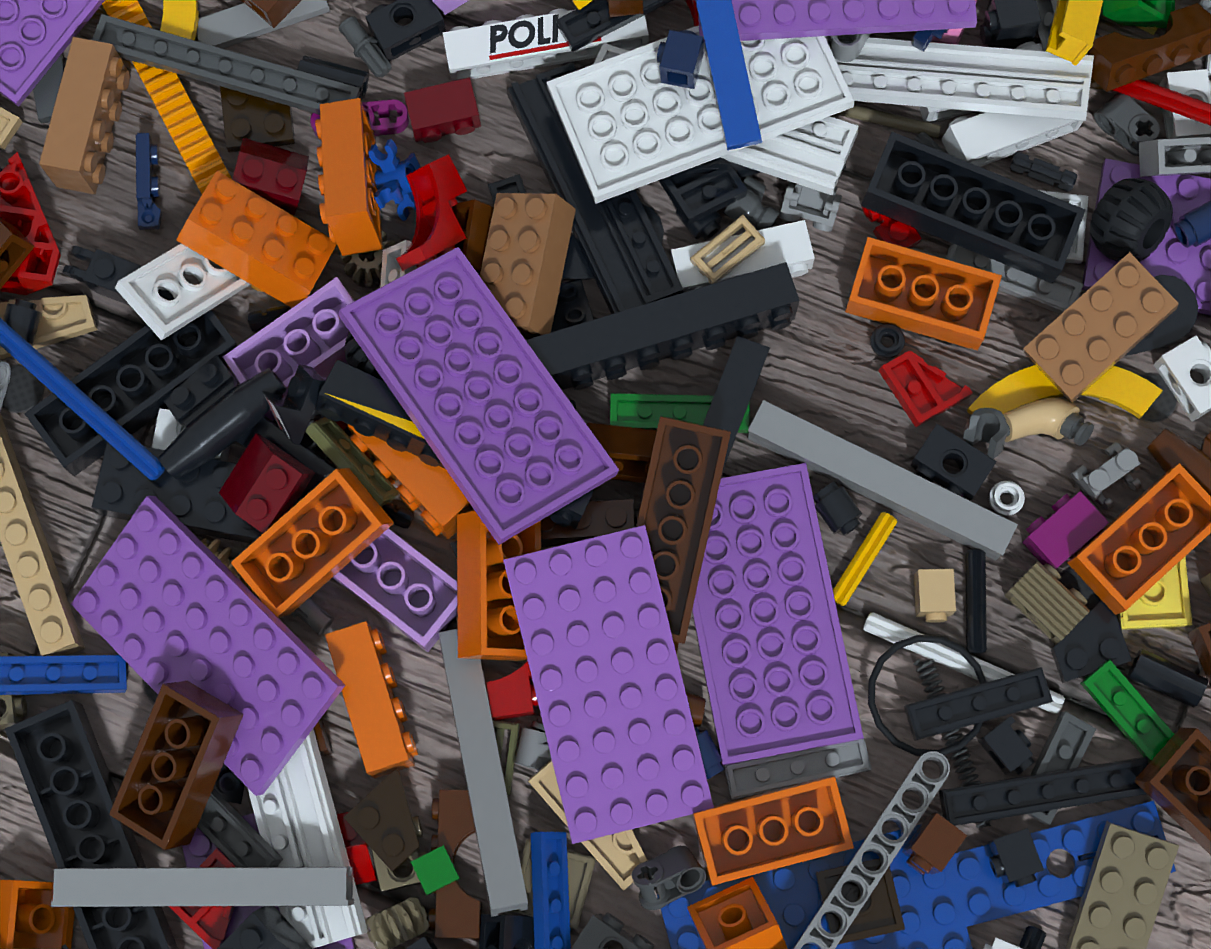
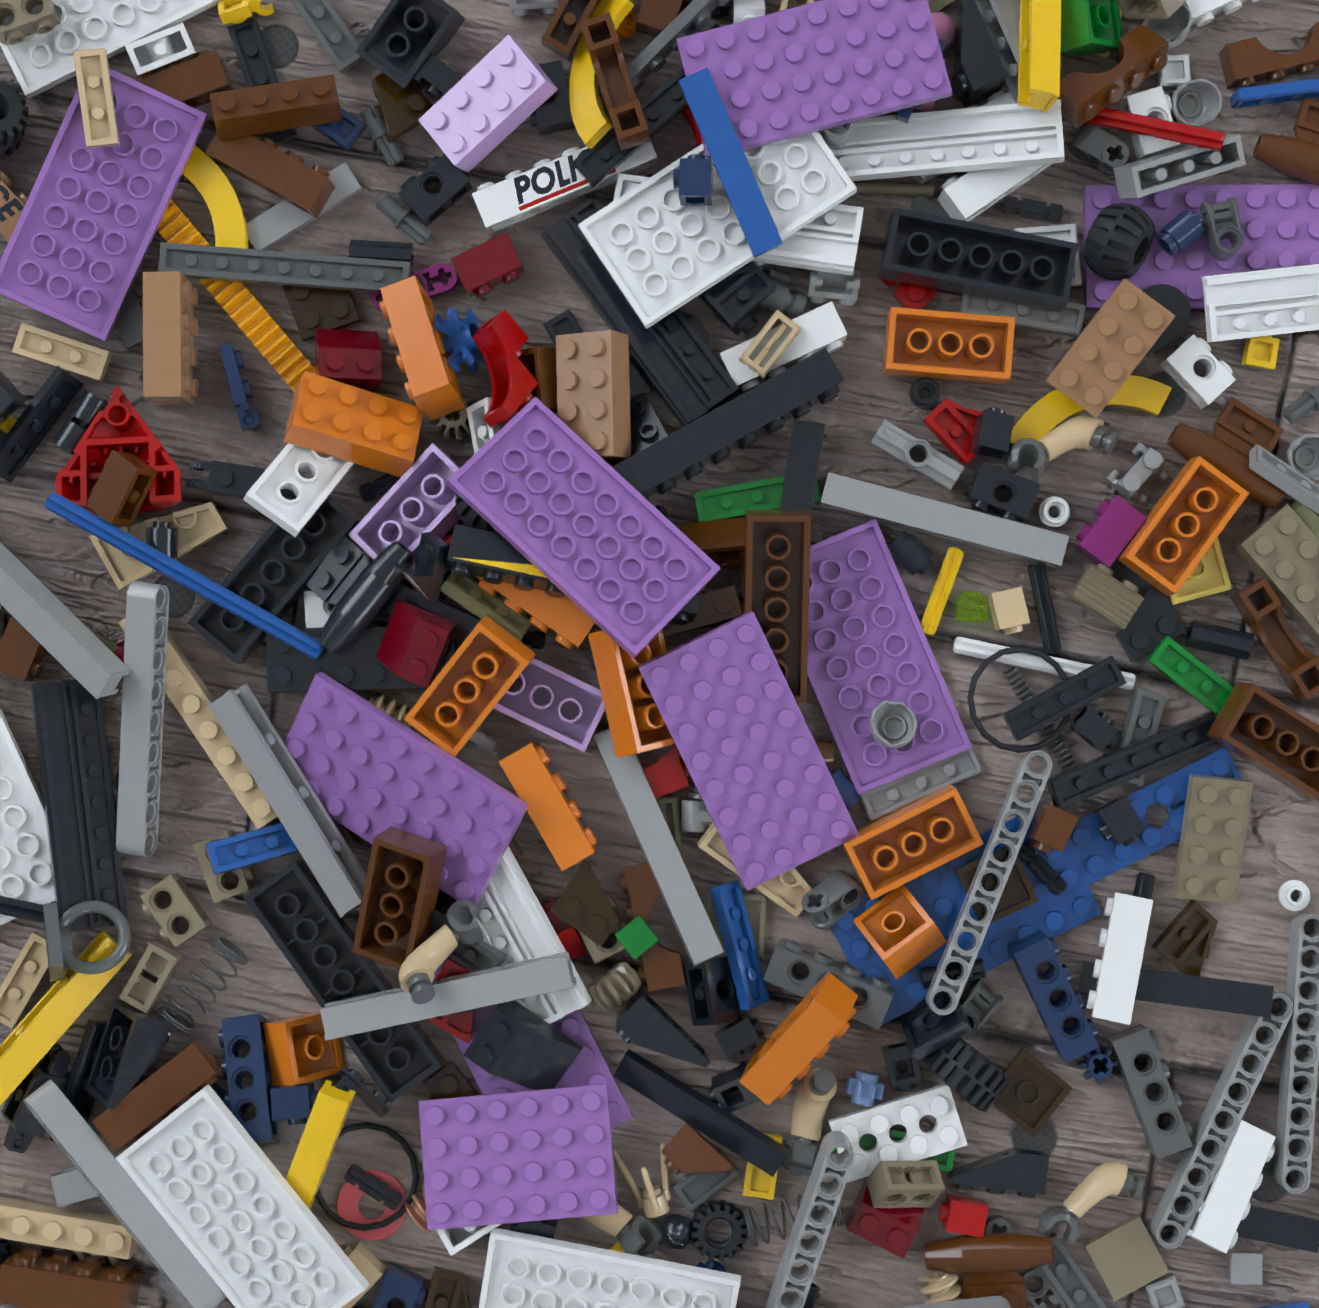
camera: 15 degrees left, 10 degrees up
(86, 628) = (291, 798): none -> light grey tile
(181, 841) = (419, 967): none -> piece
(777, 690) = (893, 724): none -> light grey hair
(849, 387) = (935, 465): none -> light grey piece
(893, 584) = (971, 607): none -> clear neon green tile
(915, 894) = (1042, 869): none -> black axle
(953, 395) = (992, 433): none -> black brick

